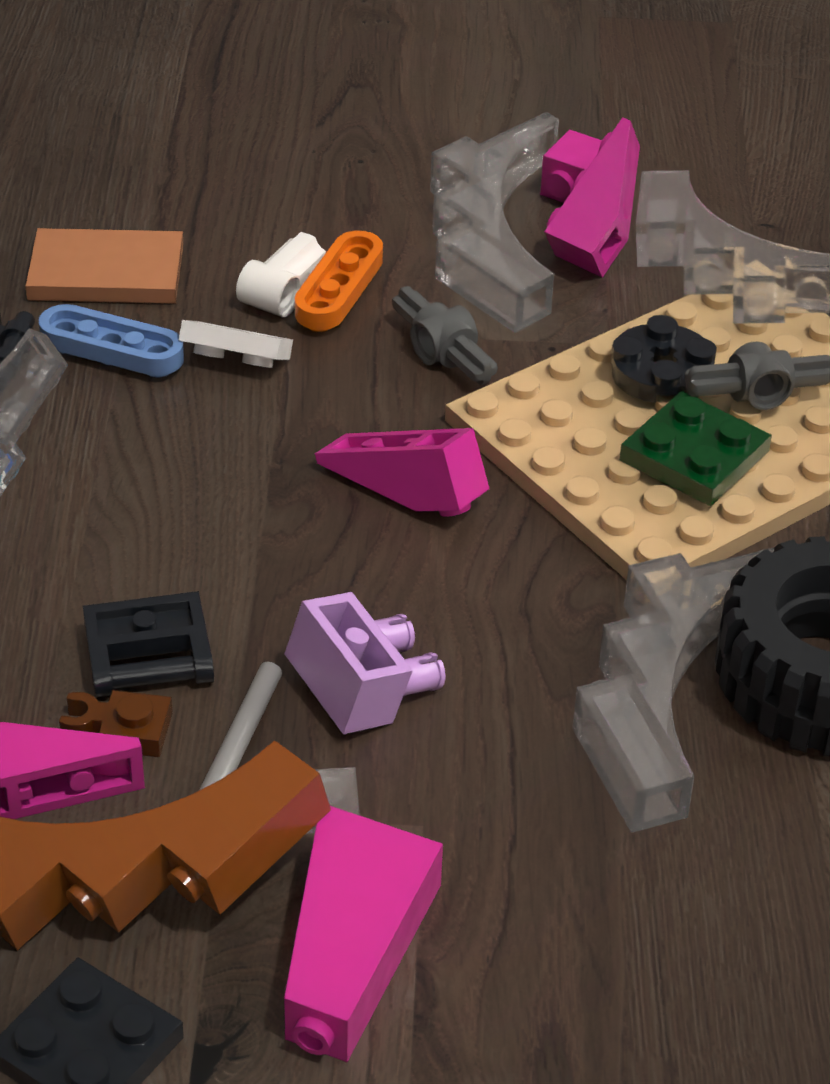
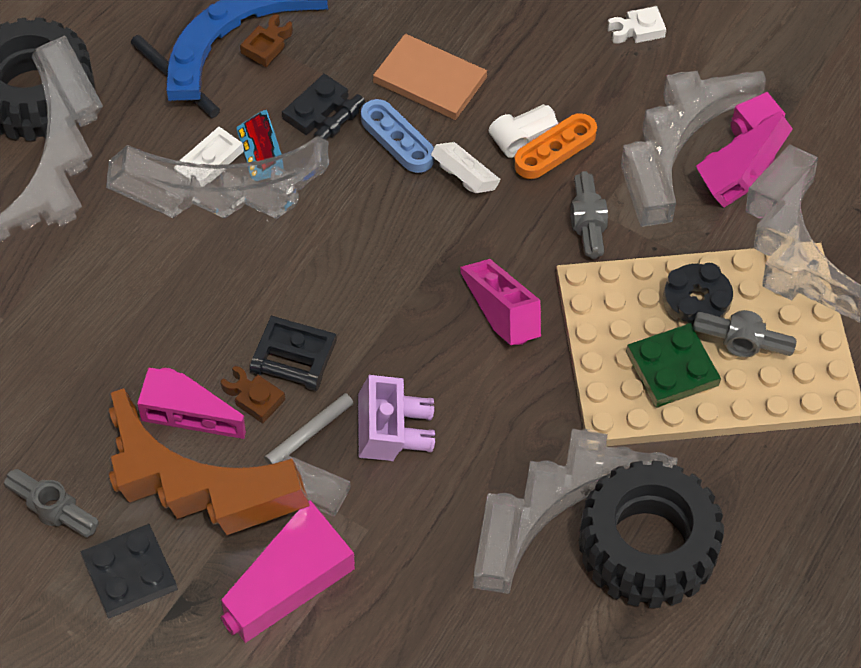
camera: 30 degrees right, 15 degrees up
(346, 127) = (641, 24): none -> white plate

